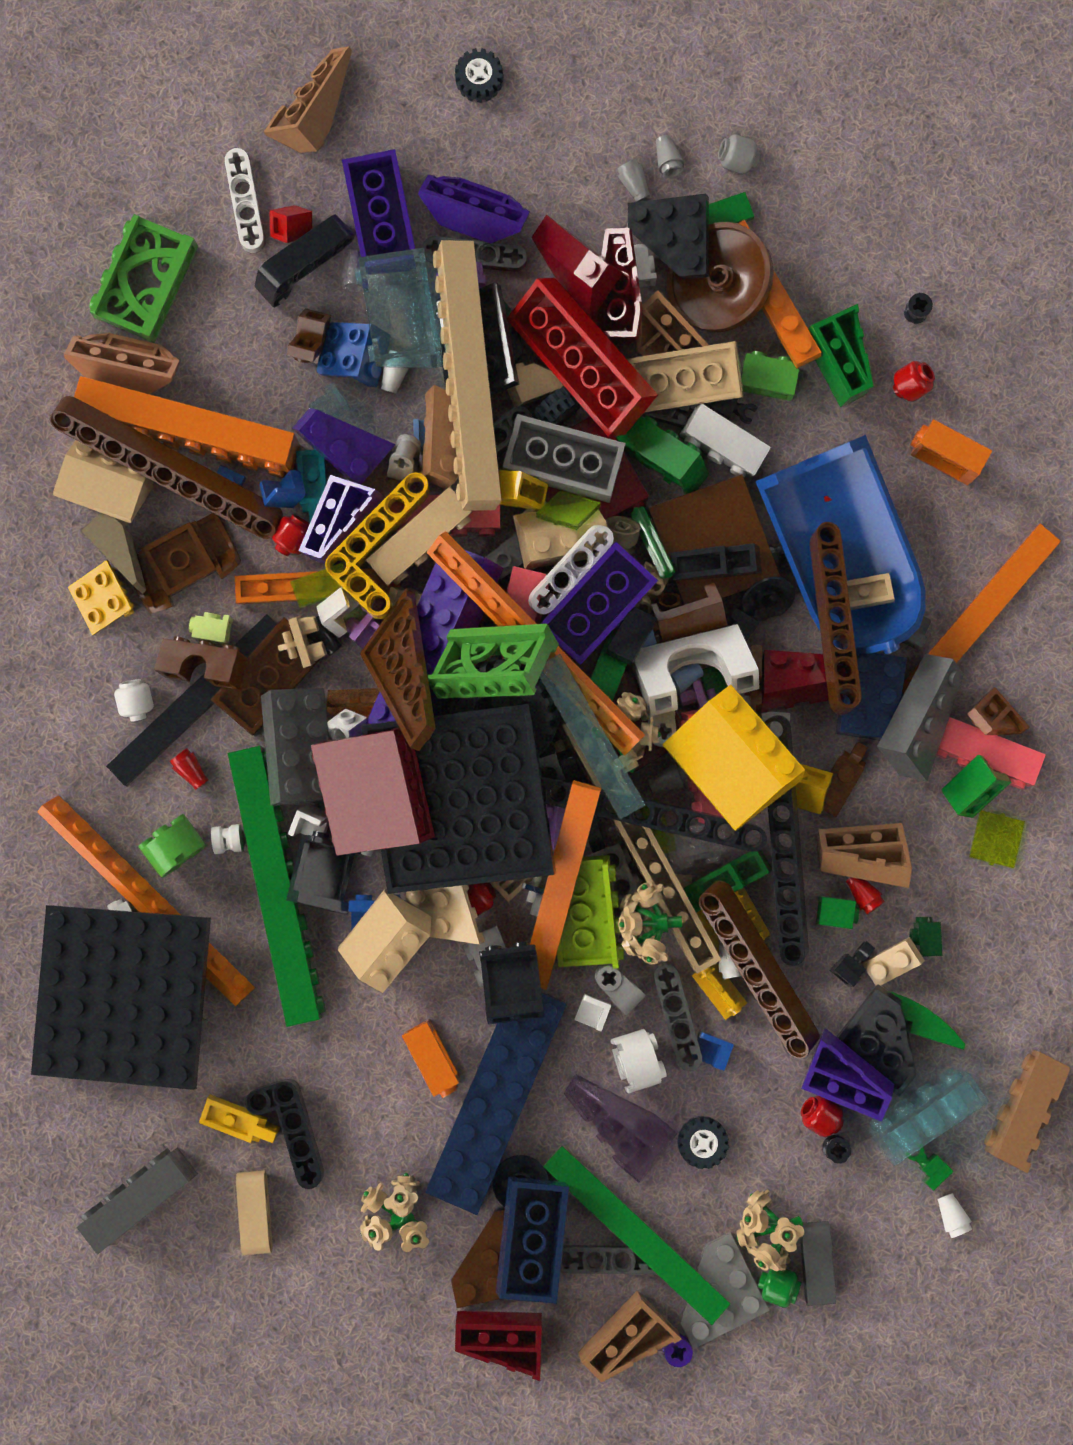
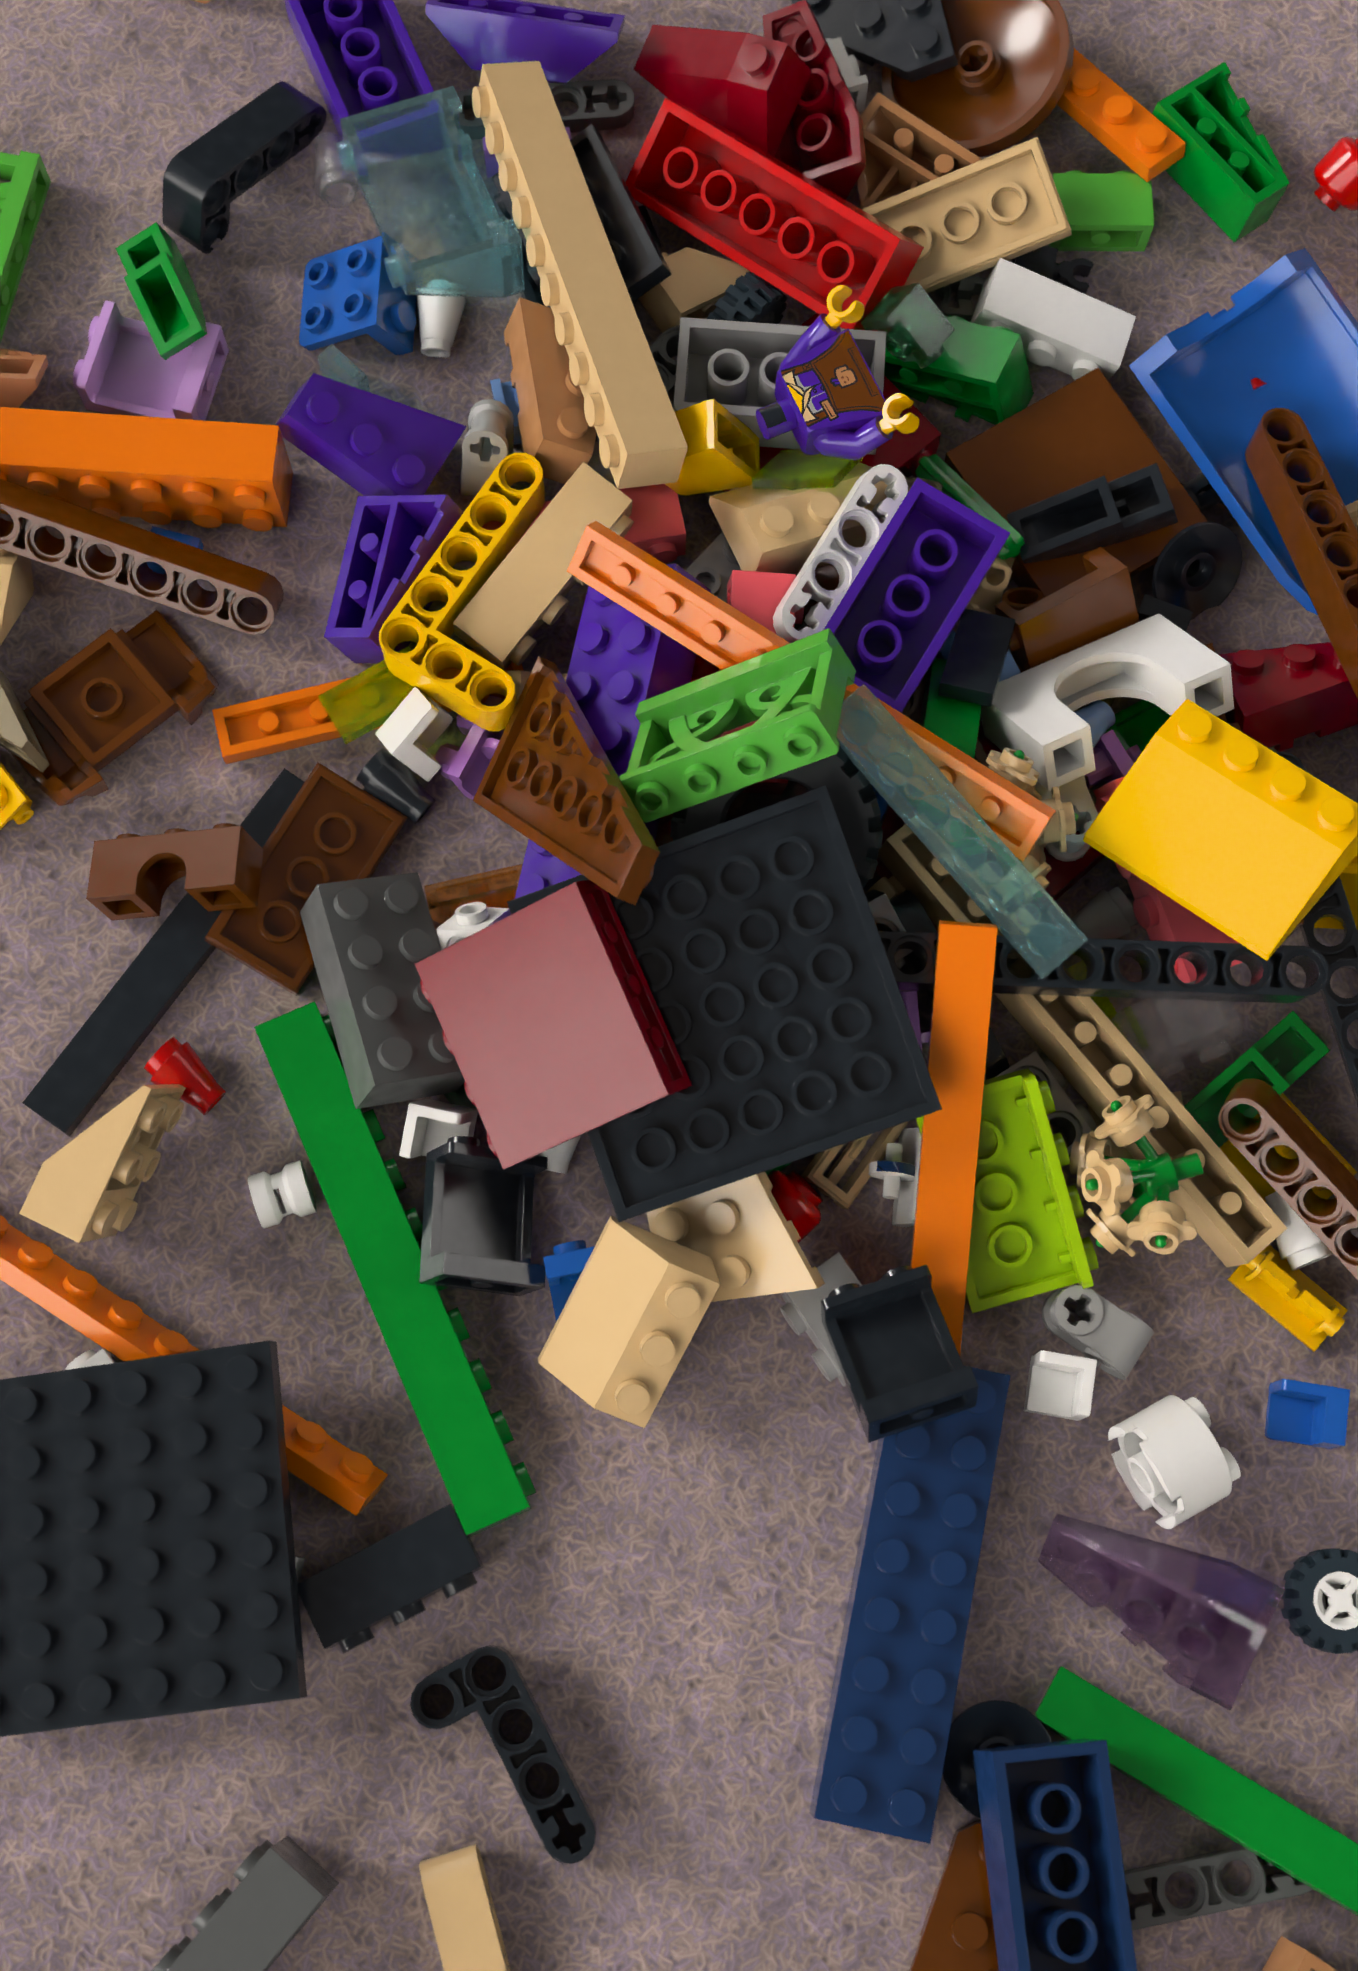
camera: 15 degrees left, 10 degrees down
(133, 699) = (57, 967): white head -> none
(133, 820) = (92, 1180): none -> tan slope
(172, 846) = (176, 1224): bright green brick -> none
(211, 628) = (182, 806): yellowish green brick -> none
(233, 373) = (131, 378): none -> lavender panel
(237, 1121) = (400, 1753): yellow hinge -> none
(245, 200) = (121, 93): white beam -> none
(246, 1039) = (390, 1579): none -> black brick
(247, 332) = (162, 290): none -> green slope
(283, 493) = (279, 549): blue panel -> none
(290, 223) = (203, 108): red panel -> none
(290, 534) = (302, 621): red head -> none
(307, 653) = (354, 770): tan hips -> none
(309, 336) = (276, 284): reddish brown brick -> none
(314, 478) = (323, 520): teal hinge -> none
(399, 1205) = (741, 1919): tan plant -> none
(432, 1059) = (771, 1539): orange window -> none
(585, 478) = (830, 393): none -> torso
(640, 438) = (911, 323): none -> clear green brick
(680, 1016) = (1216, 1367): dark grey beam -> none
(918, 300) = (1326, 55): black bush -> none

